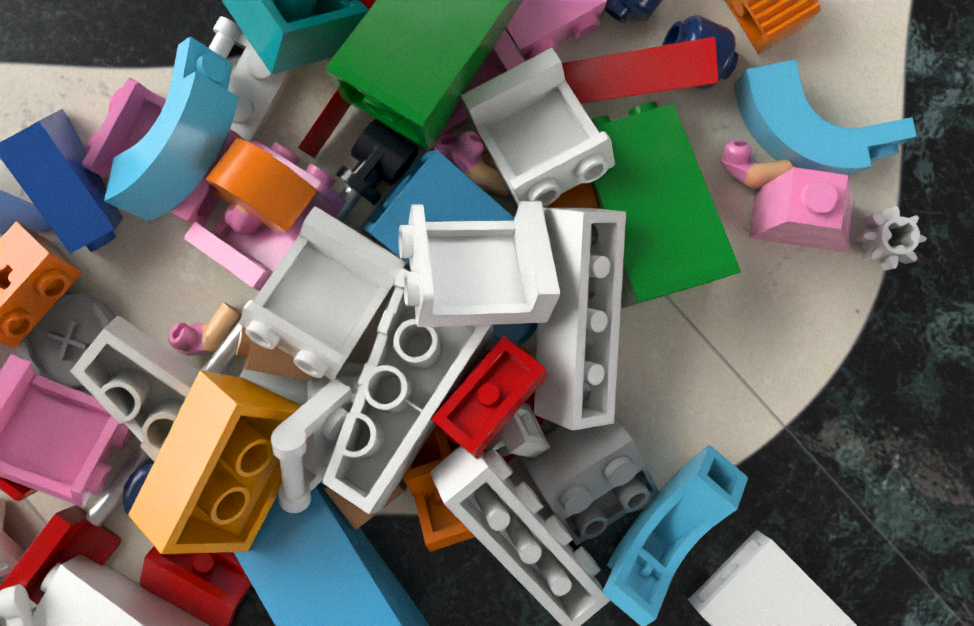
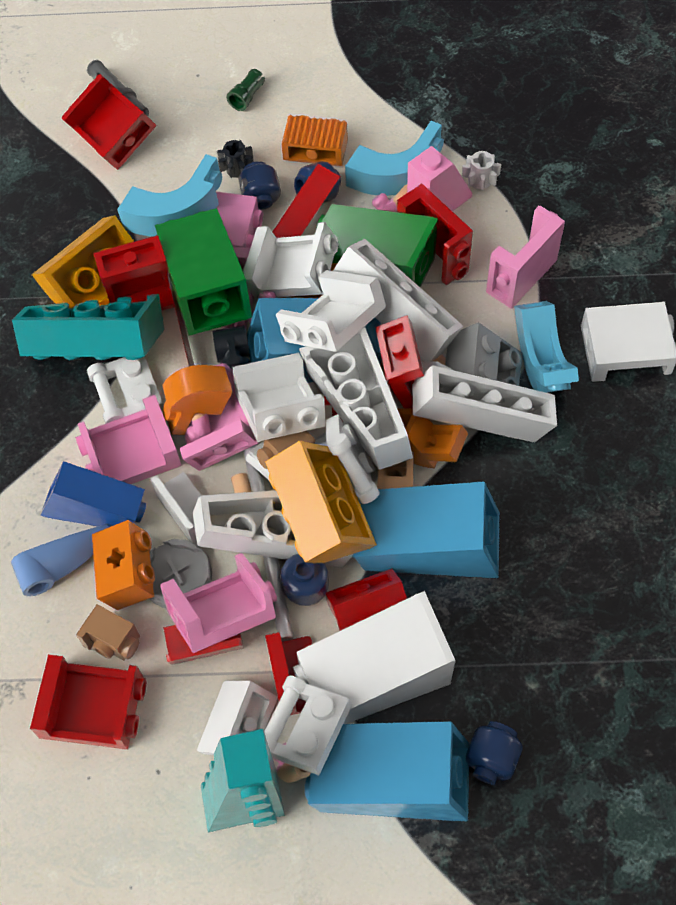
camera: 45 degrees left, 25 degrees down
(146, 282) = (179, 499): none -> white panel
(183, 140) = (140, 421): medium azure arch -> none
(742, 296) = (453, 235): none -> red panel
(845, 412) = (515, 275): none -> bright pink panel

